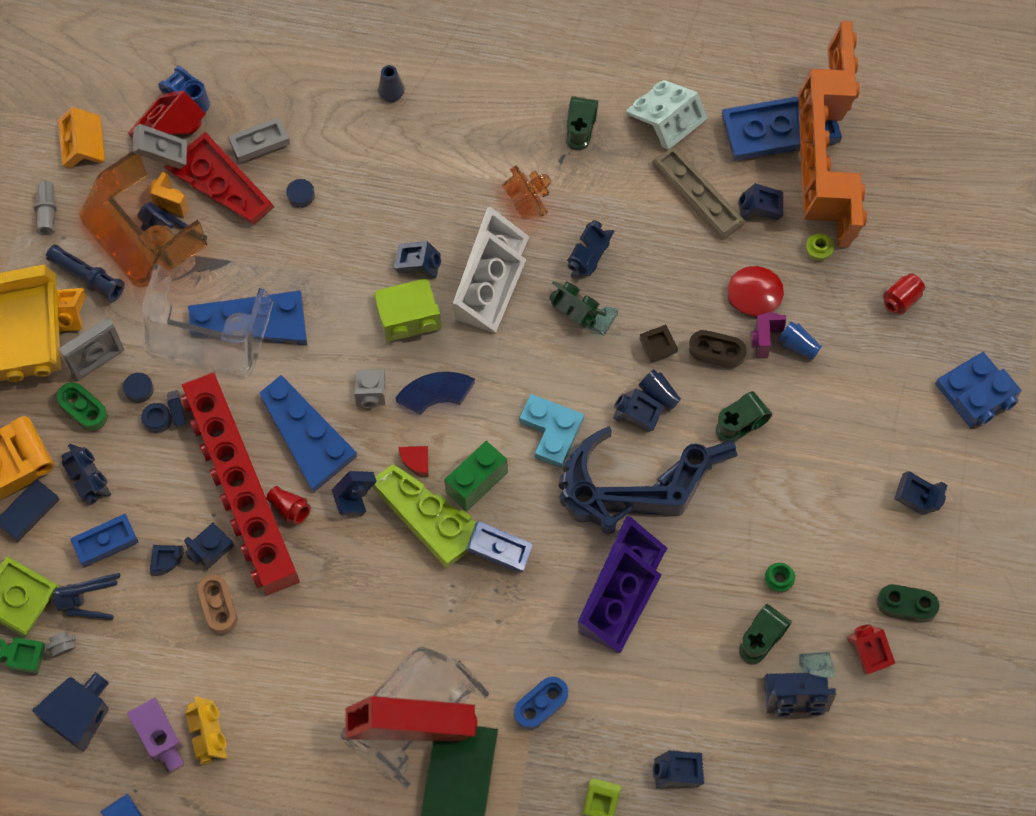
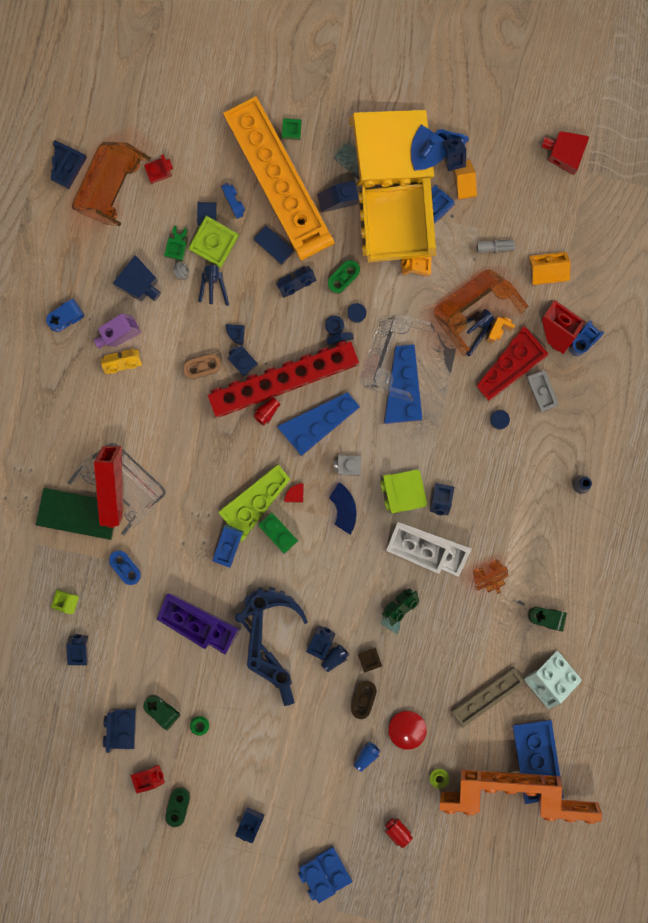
camera: 90 degrees right, 20 degrees up
(92, 349) = (380, 282): light grey plate -> none
(94, 278) = (438, 282): dark blue pin -> none
(104, 540) = (249, 295): blue plate -> none
(159, 146) = (532, 322): light grey plate -> none
(350, 490) = (269, 451): dark blue bracket -> none
(557, 423) = (312, 590): medium azure plate -> none
(584, 259) = (436, 615): dark blue hinge -> none
(742, 417) = (313, 714): dark green piece -> none
(761, 201) = (475, 741): dark blue bracket -> none
(766, 324) = (370, 730): magenta bracket -> none
(817, 664) = (139, 744): clear light blue tile -> none

